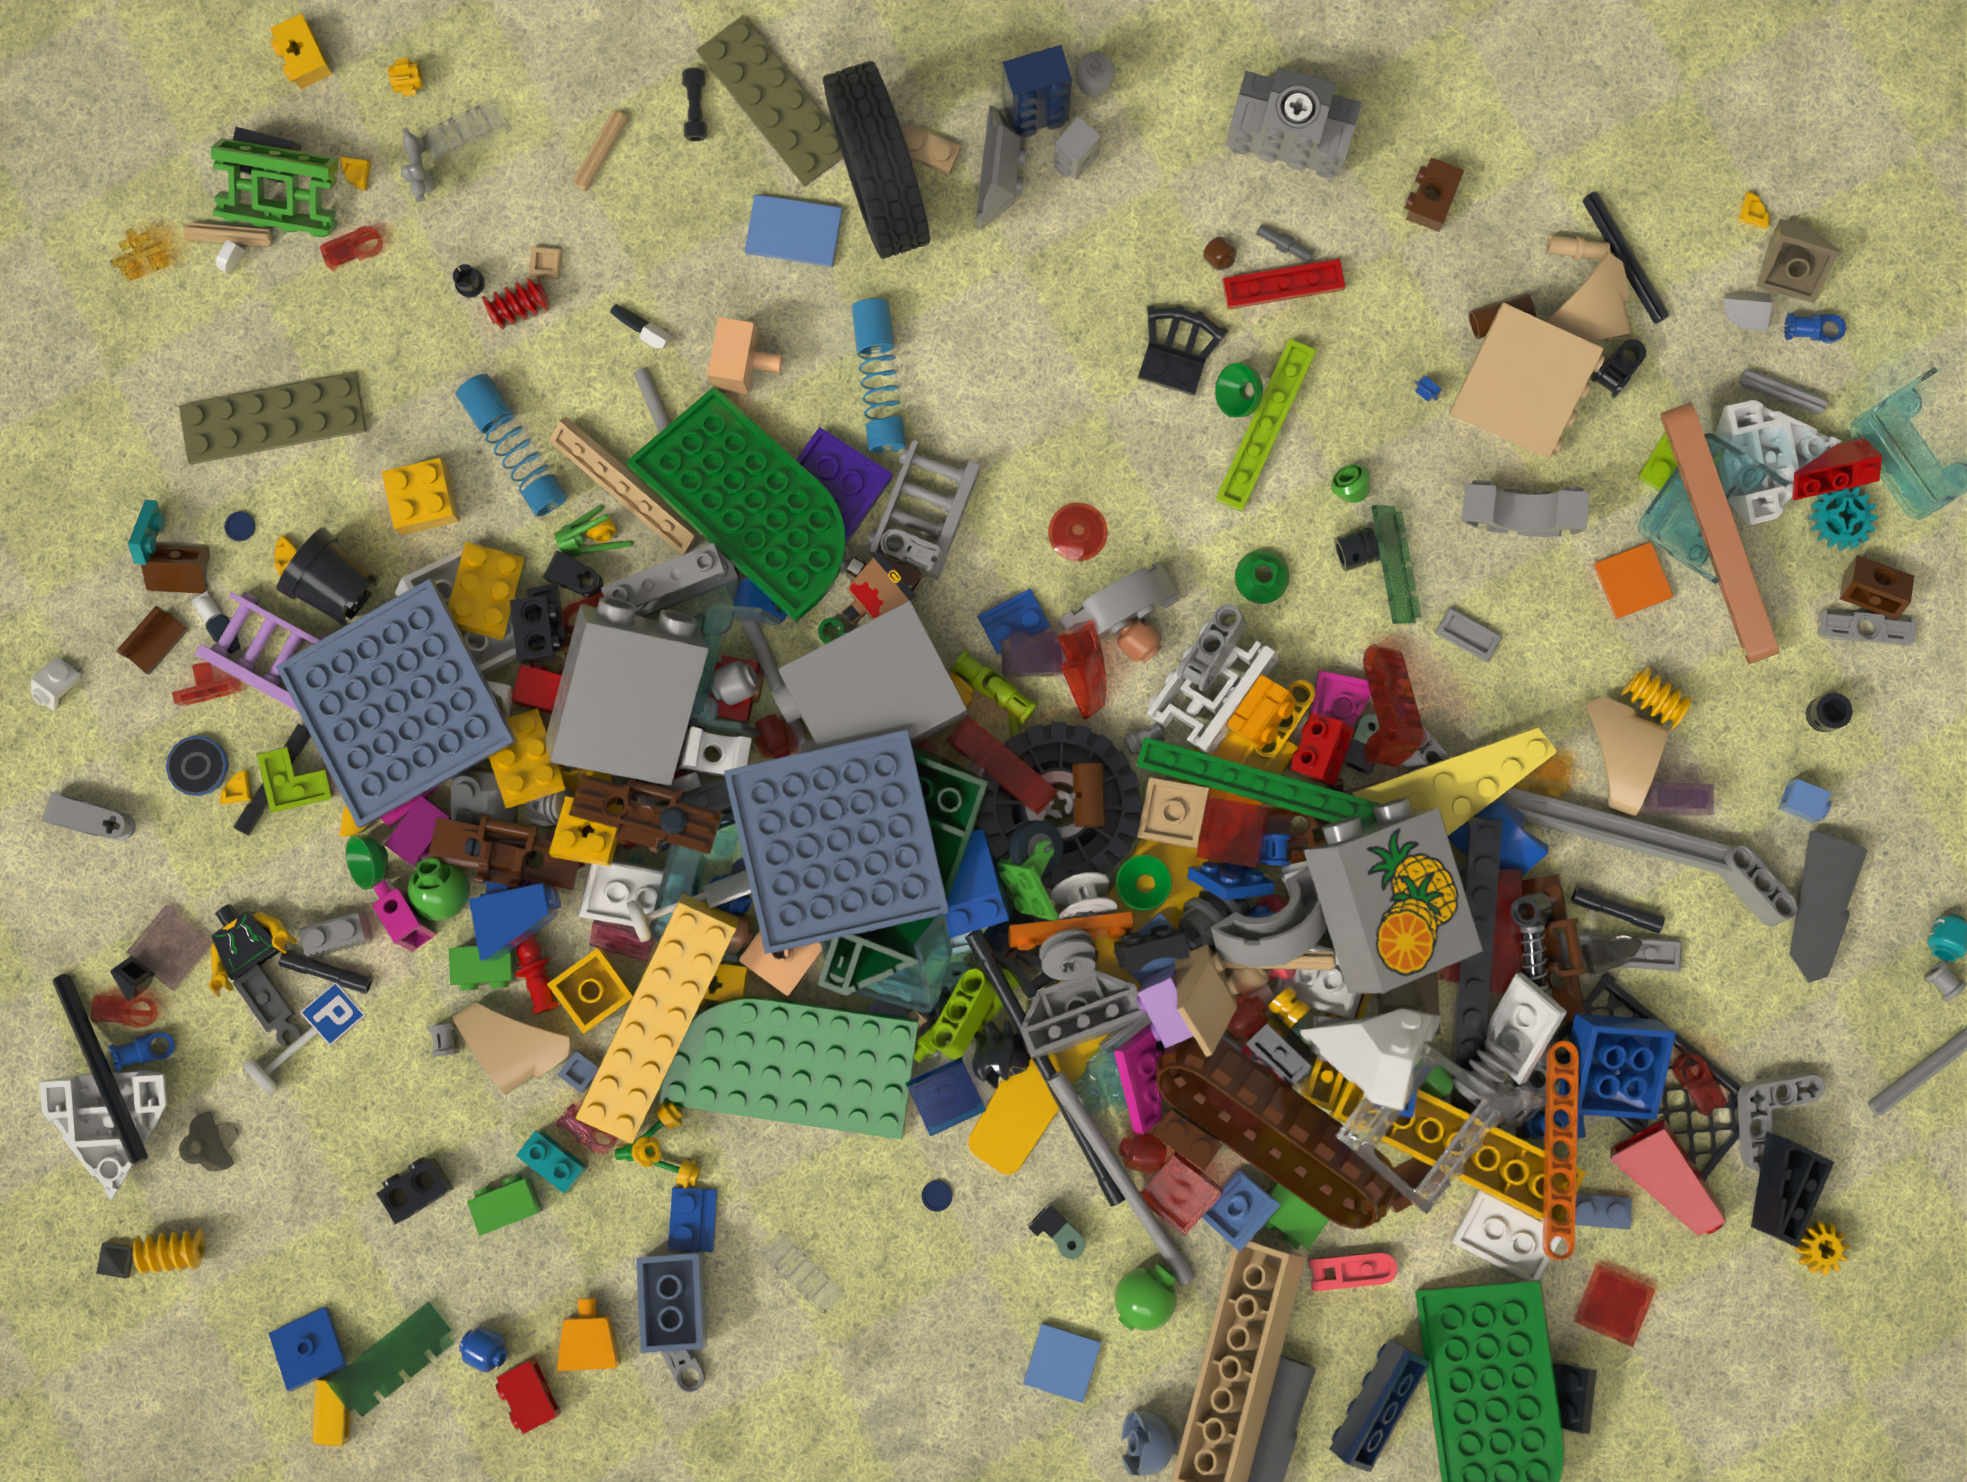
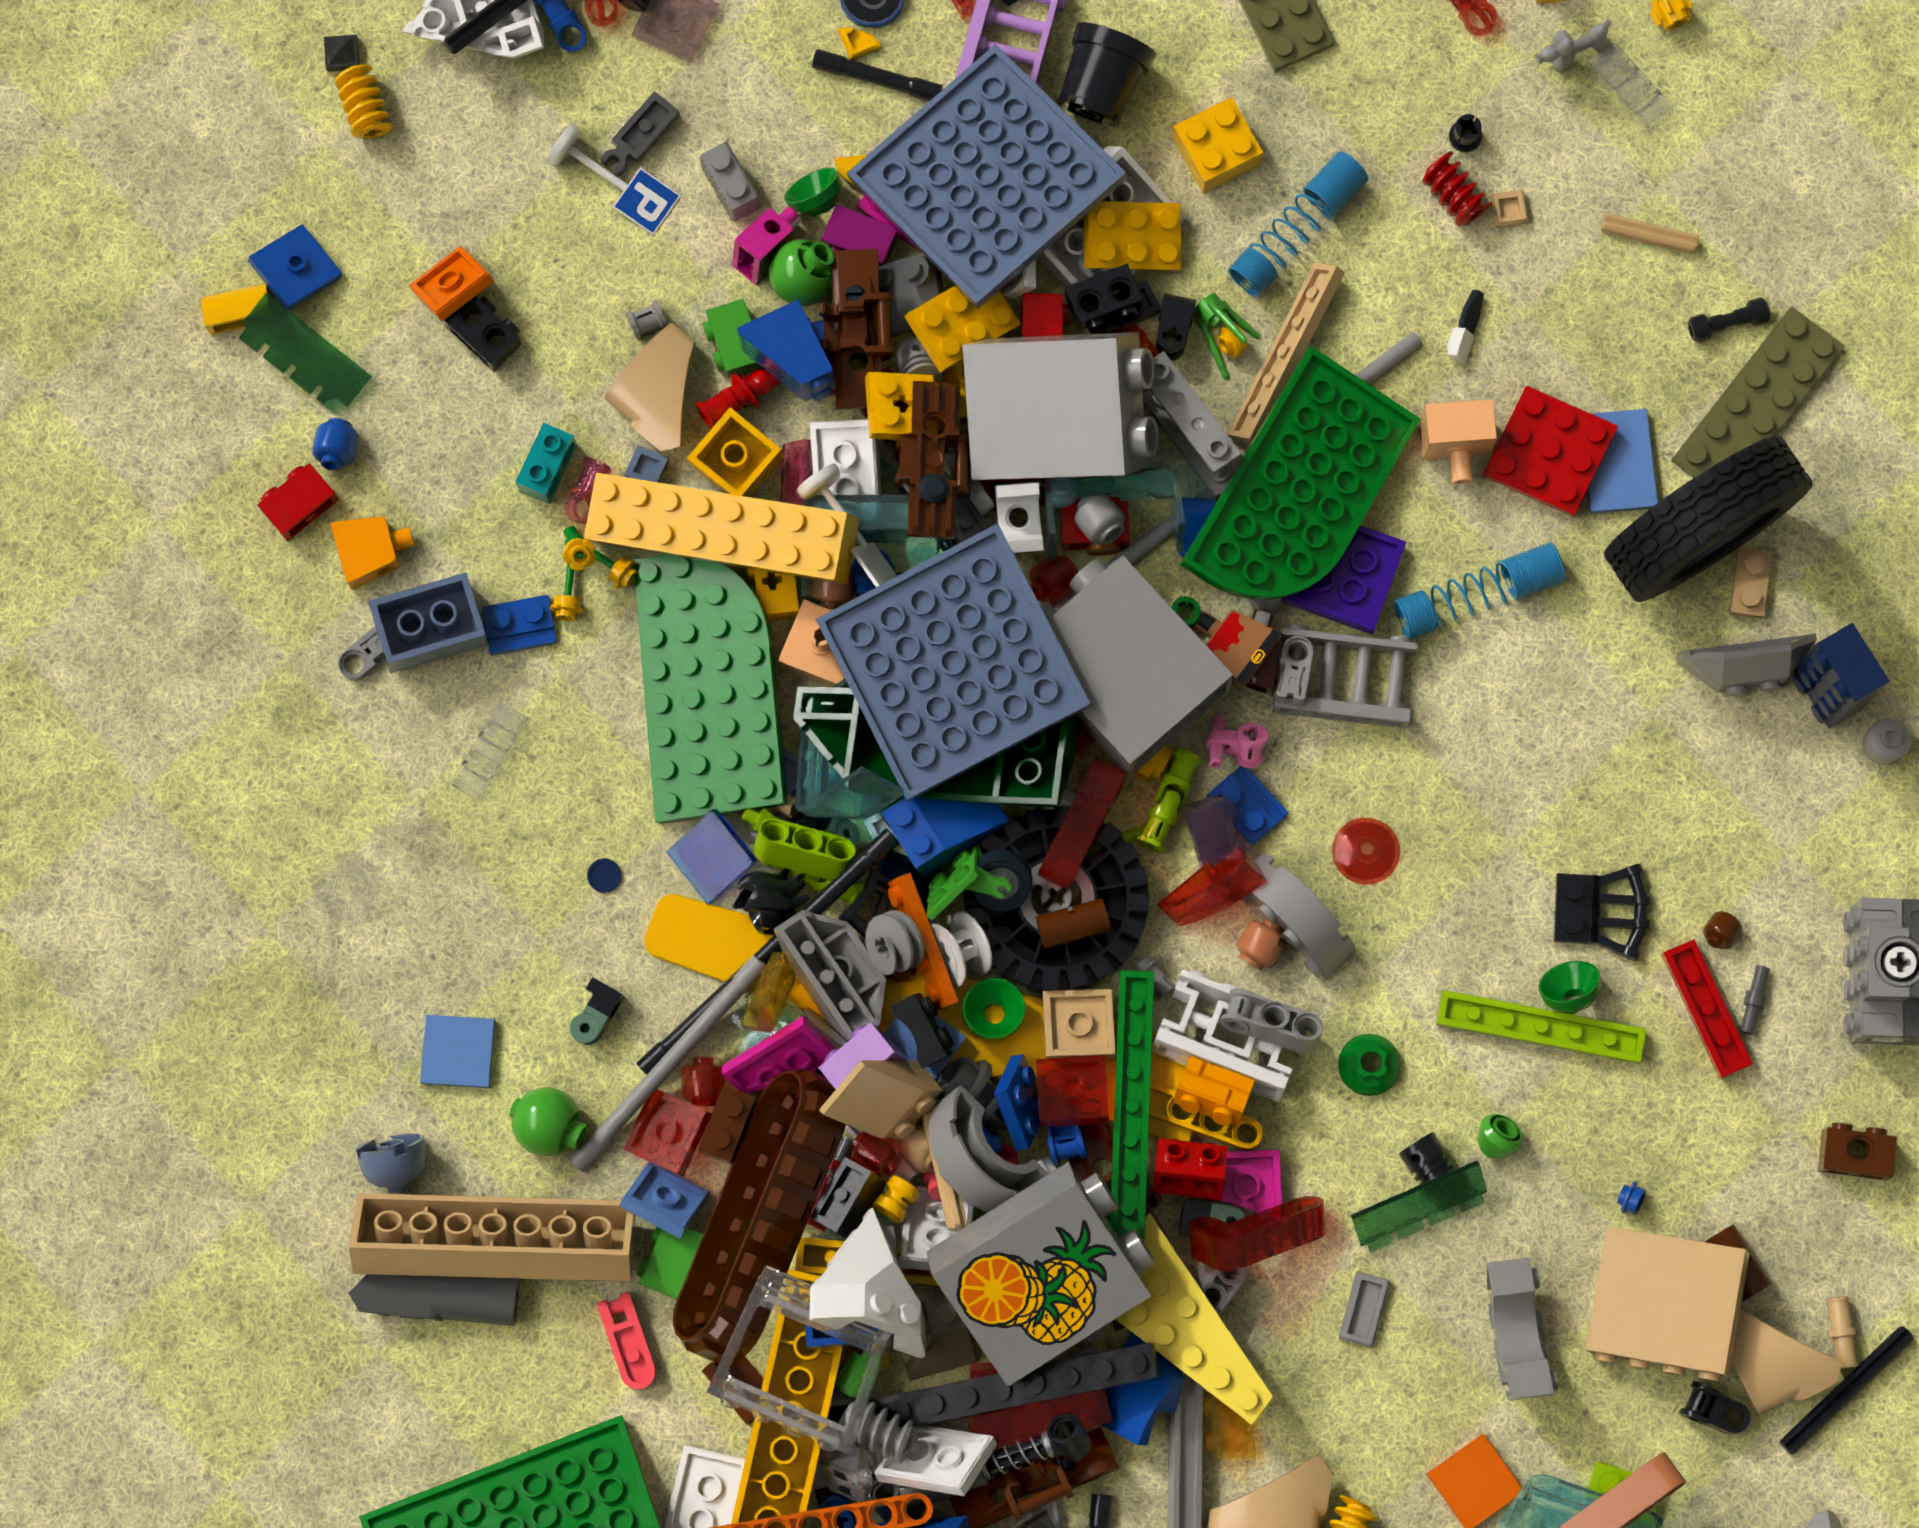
camera: 75 degrees right, 5 degrees down
(213, 1143) = (486, 116): clear smoke plate -> none
(244, 944) = (696, 91): torso -> none
(284, 553) = (1121, 22): yellow tile -> none
(289, 790) = (869, 92): lime plate -> none
(344, 977) = (690, 164): black piece -> none
(362, 1209) = (451, 283): none -> orange tile
(504, 1205) = (488, 426): bright green brick -> none
(771, 284) = (1550, 451): none -> red plate
(959, 617) = (1236, 743): none -> bright pink piece
(1076, 149) = (1792, 740): light grey brick -> none
(1087, 1075) = (770, 994): none -> clear yellow bracket
(1378, 1405) = (488, 1402): dark blue slope -> none

